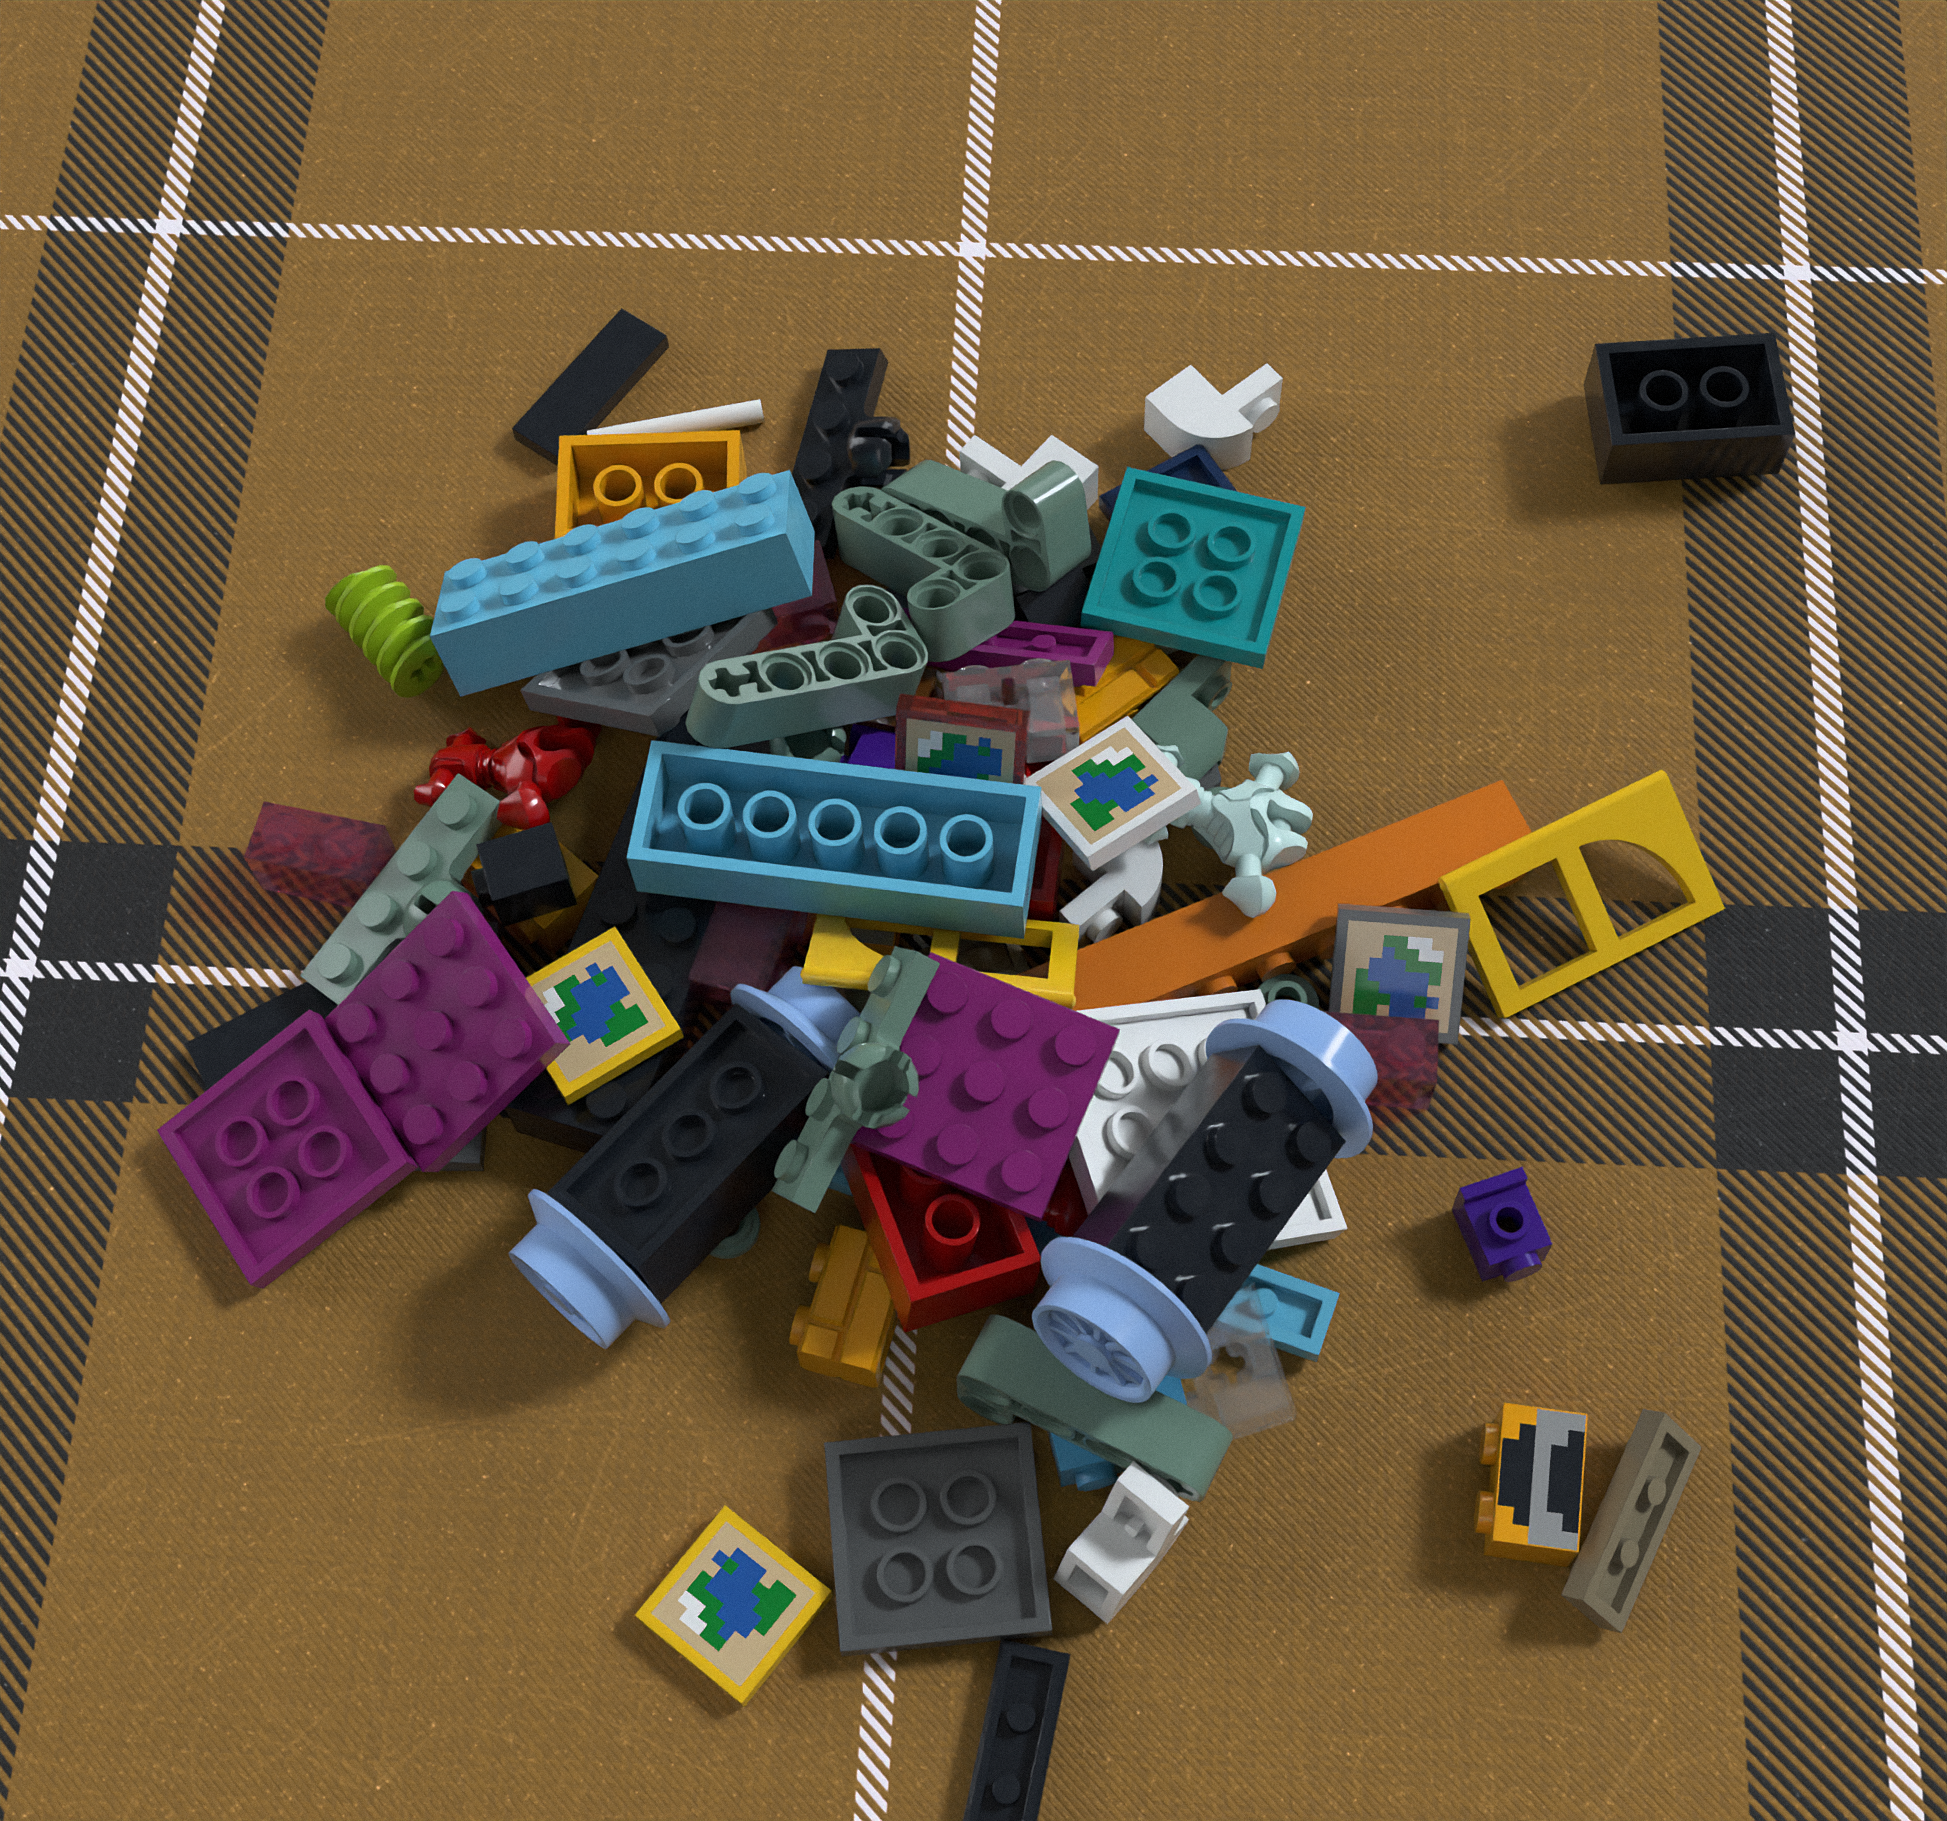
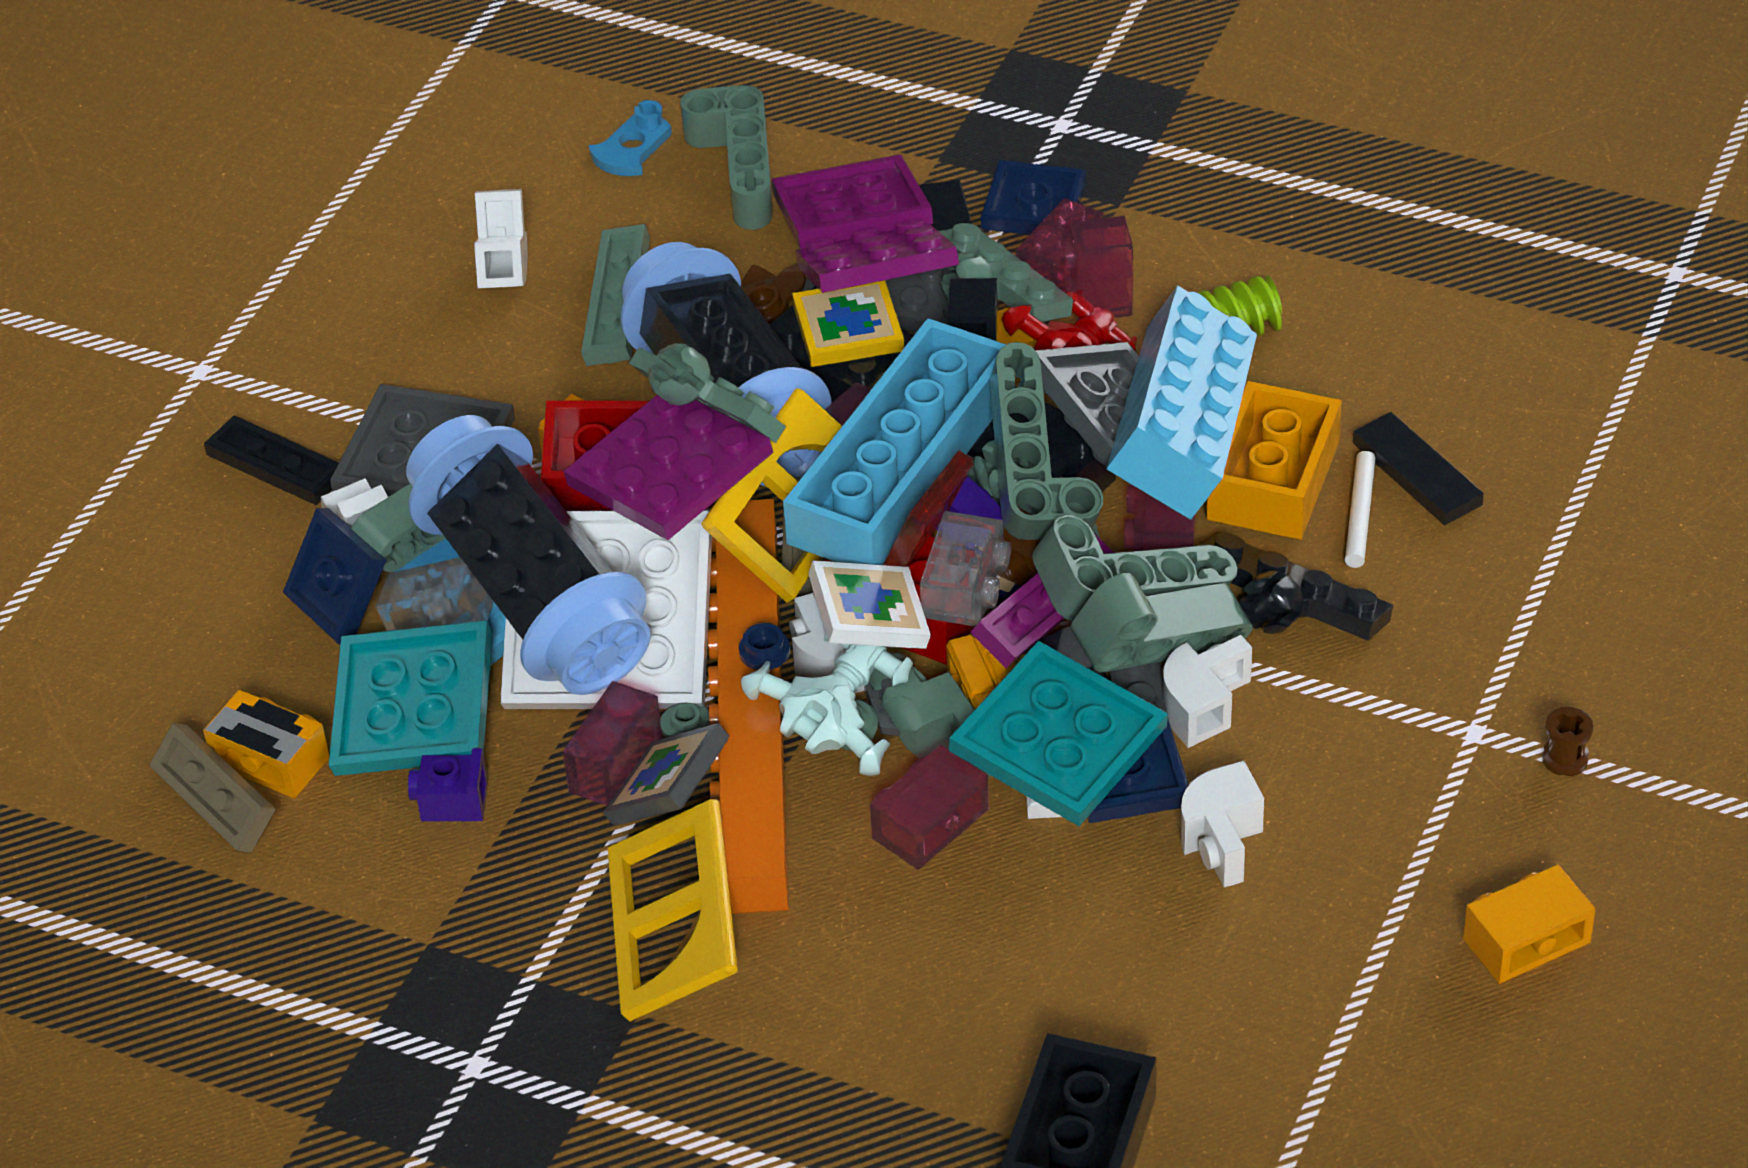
camera: 110 degrees right, 20 degrees down
(197, 944) = (1027, 194): none -> dark blue tile
(206, 1356) = (736, 120): none -> sand green beam
(224, 1560) = (643, 125): none -> dark azure piece
(366, 774) = (1101, 263): none -> clear pink brick
(477, 1216) = (772, 292): none -> reddish brown plate
(503, 1606) = (501, 240): none -> white brick
(544, 1395) = (603, 331): none -> sand green plate
(734, 1605) = (444, 355): tile -> none
(983, 157) = (1567, 733): none -> reddish brown bush
(1188, 898) = (762, 644): none -> dark blue plate
(1235, 126) = (1528, 923): none -> light orange brick
(1245, 1517) = (334, 575): none -> dark blue tile
(1313, 697) = (929, 806): none -> clear pink brick
(1402, 1324) = (410, 696): none -> teal plate

